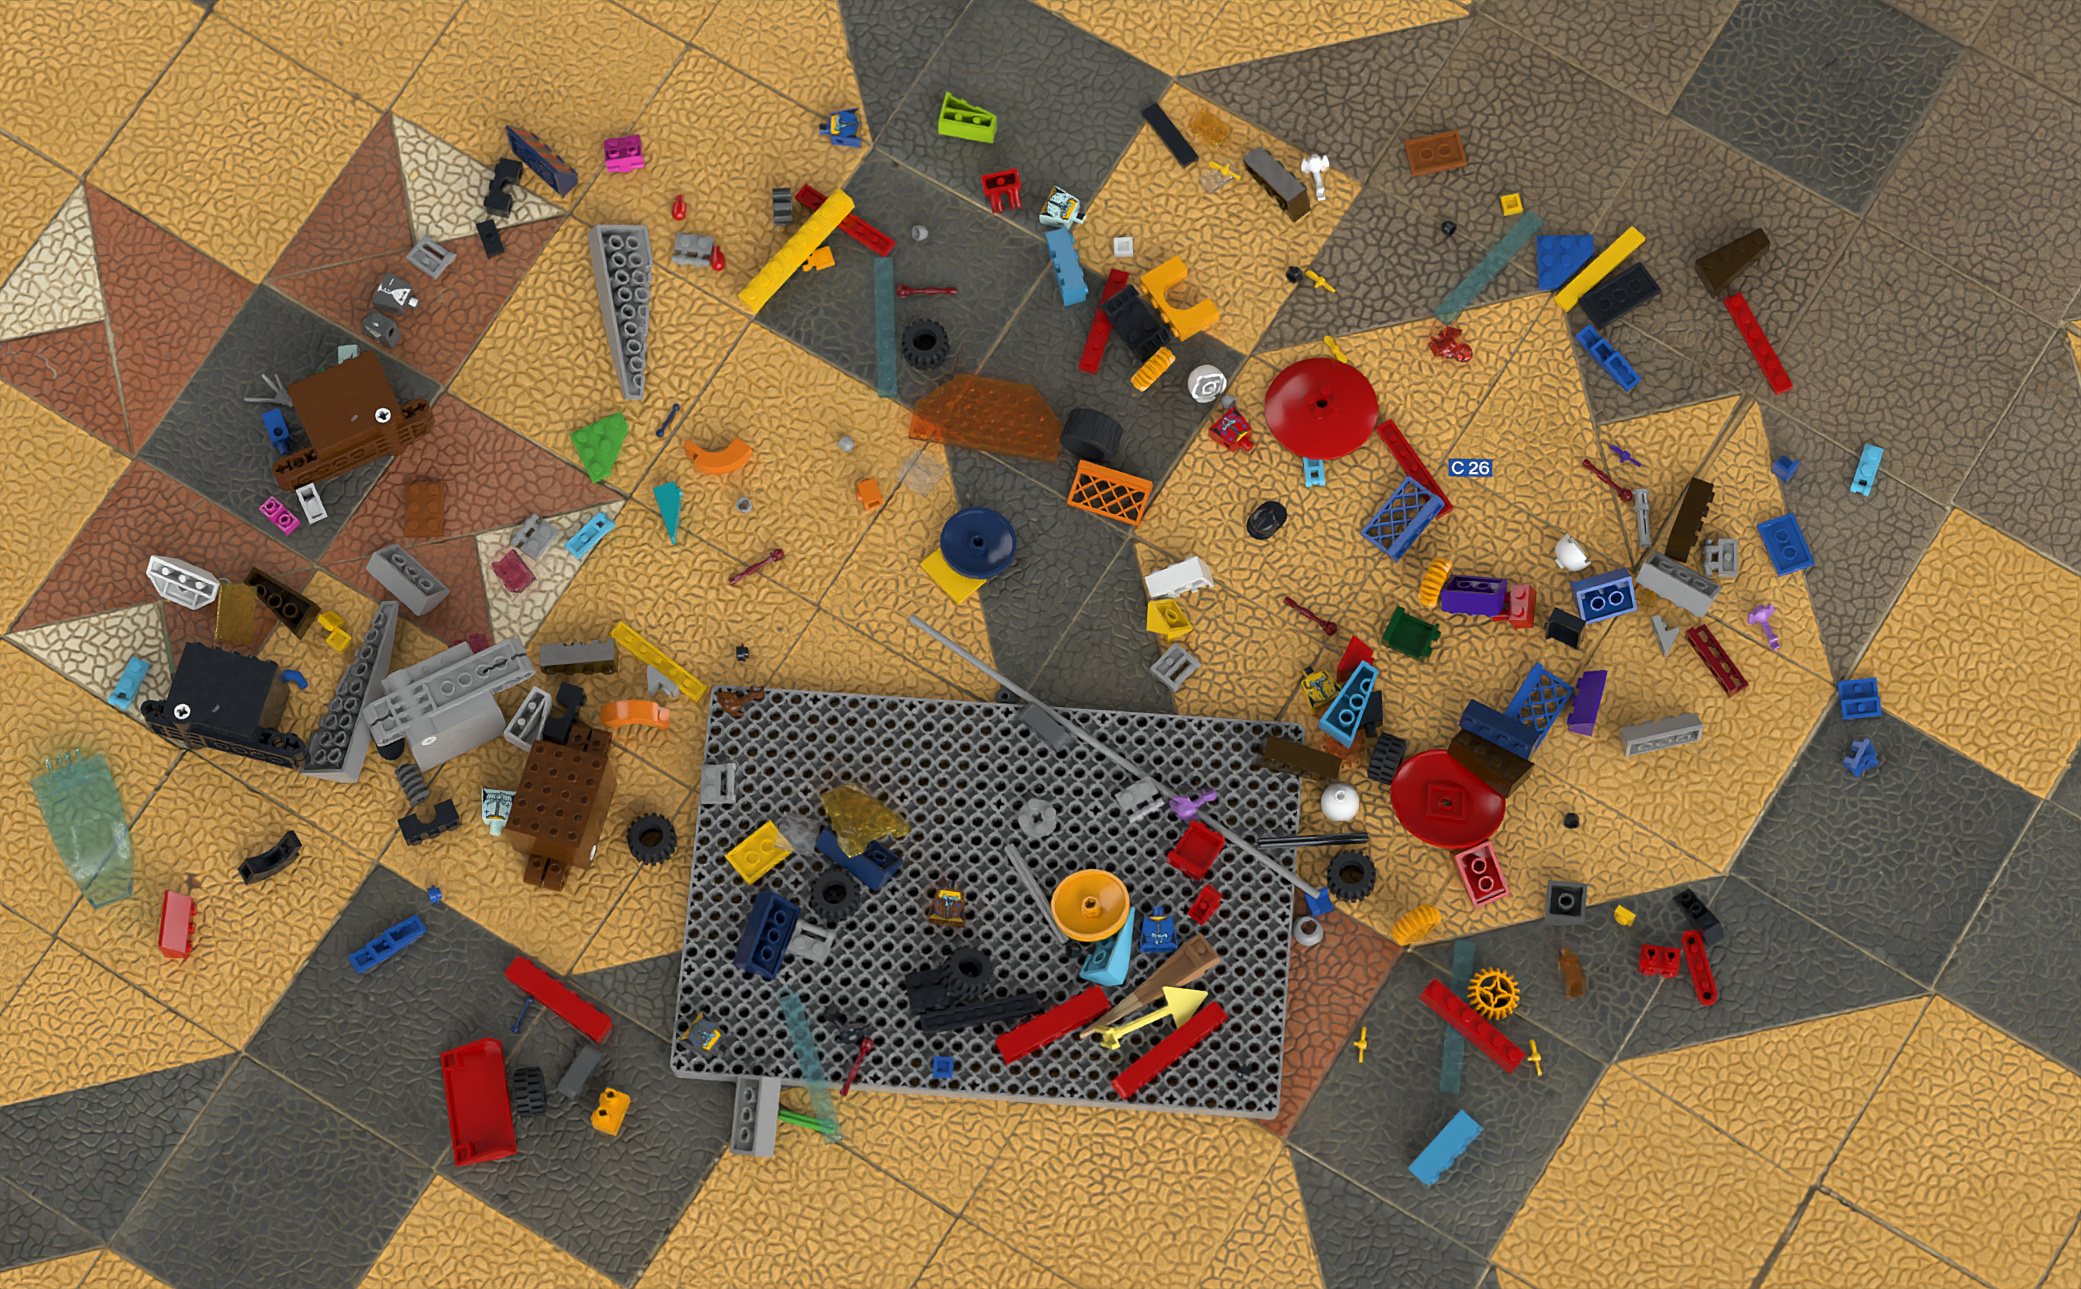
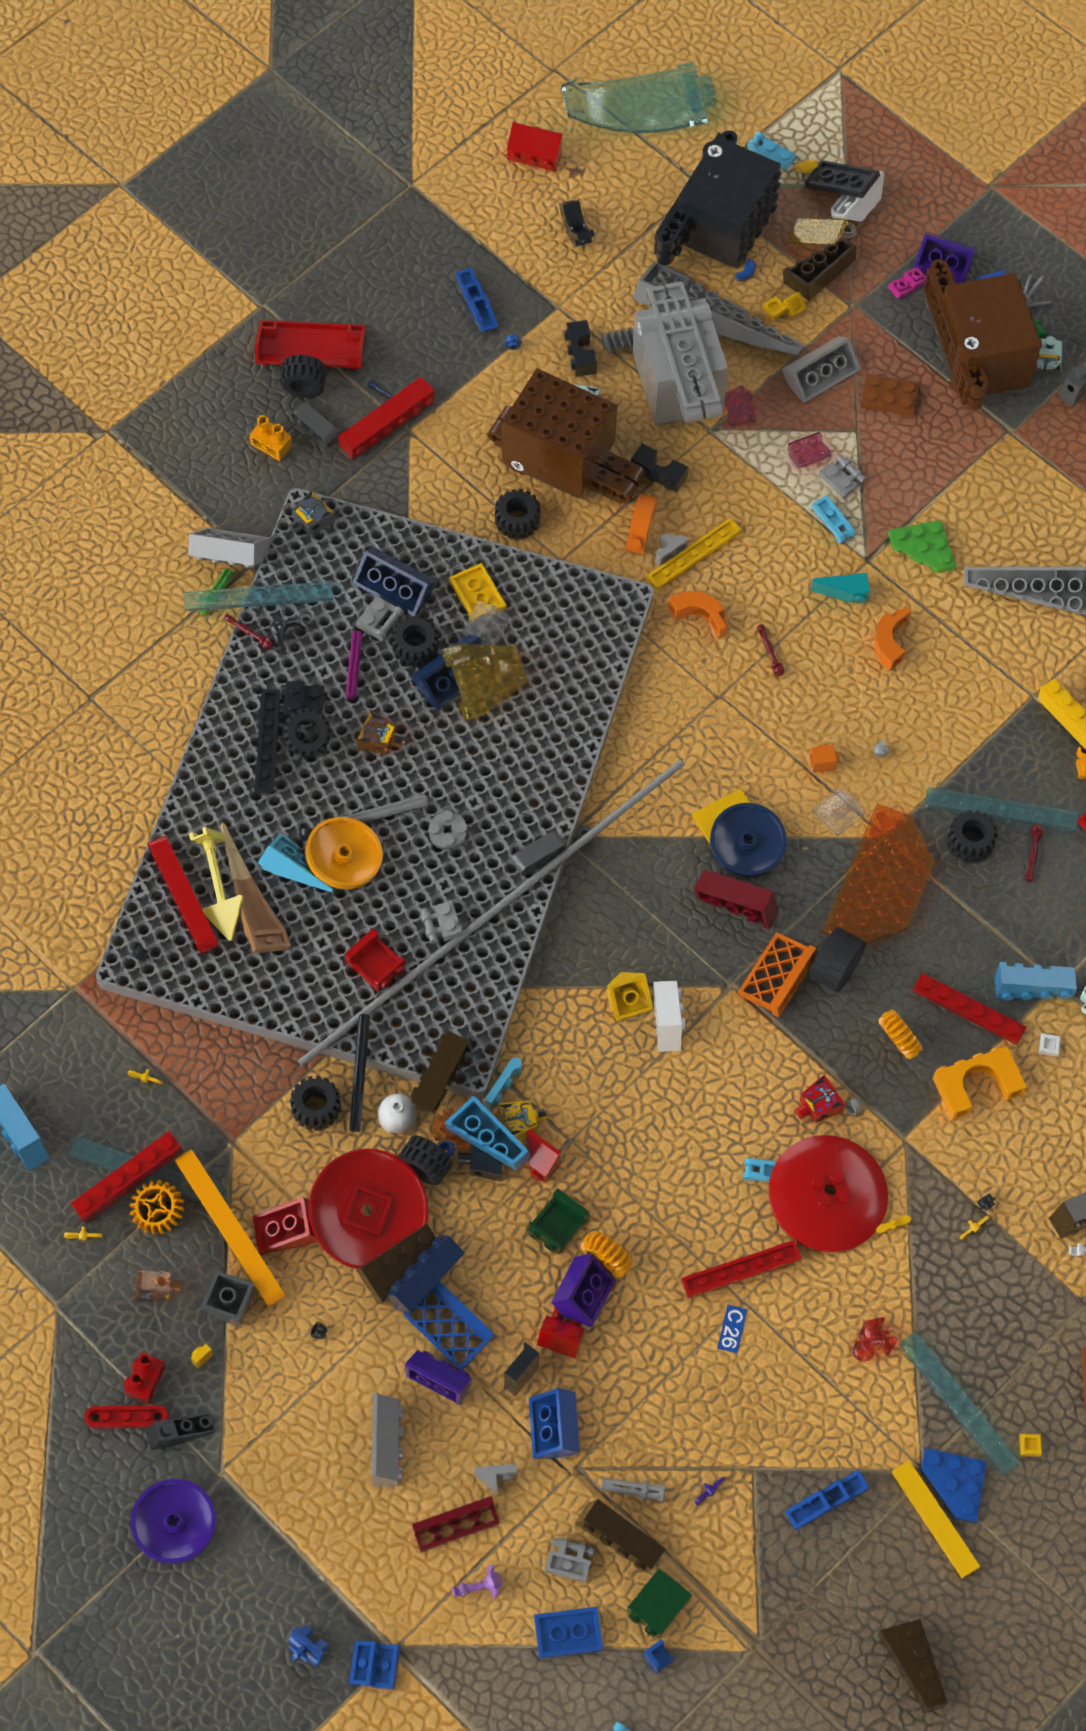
camera: 95 degrees right, 5 degrees down
(145, 642) = (806, 166): none -> yellow plate
(162, 599) = (842, 179): none -> black tile
(241, 482) = (955, 254): none -> dark purple slope
(311, 502) = (914, 303): light grey slope -> none
(529, 720) = (656, 435): white wedge -> none
(580, 658) = (710, 488): wedge -> none
(660, 433) = (927, 596): dark blue hinge -> none
(712, 784) = (554, 566): light grey plate -> none
(720, 636) = (699, 604): none -> orange arch
(732, 705) = (626, 592): reddish brown piece -> none
(740, 506) = (835, 650): light grey hinge -> none
(742, 653) = (684, 621): black plate -> none
(871, 952) = (354, 662): none -> magenta axle
(943, 1067) = (225, 700): blue plate -> none
(1041, 542) = (738, 897): none -> dark red wedge
(1052, 1025) = (237, 799): red brick -> none
(1134, 323) = (958, 1032): black plate -> none
(1158, 933) = (301, 909): blue torso -> none
(1170, 663) = (582, 988): light grey plate -> none
(1186, 808) = (418, 959): medium lavender piece -> none
(1205, 904) = (318, 958): red slope -> none
(1206, 382) = (878, 1085): white cylinder -> none
(1266, 520) = (717, 1115): black piece -> none
(1286, 713) = (503, 1082): none -> medium azure plate
(1305, 939) = (270, 1064): light grey piece -> none
(1320, 905) = (296, 1071): blue panel -> none
(1329, 627) = (586, 1146): dark red piece -> none
(1365, 742) = (446, 1145): none -> blue plate
(1415, 924) = (246, 1148): light orange gear -> none
(1416, 525) = (671, 1248): blue fence -> none
(1448, 228) = (1012, 1371): black hinge -> none
(1495, 921) = (230, 1228): none -> light orange beam
(1570, 554) = (607, 1402): white cylinder -> none
(1619, 295) = (898, 1531): black plate -> none
(1624, 494) = (667, 1476): dark red piece -> none
(1647, 597) = (542, 1469): clear yellow plate -> none
(1678, 584) = (550, 1506): light grey slope -> none
(1740, 474) = (658, 1603): none -> dark green panel
(1758, 343) = (813, 1669): red plate -> none
(1785, 897) = (173, 1521): none -> dark purple dish

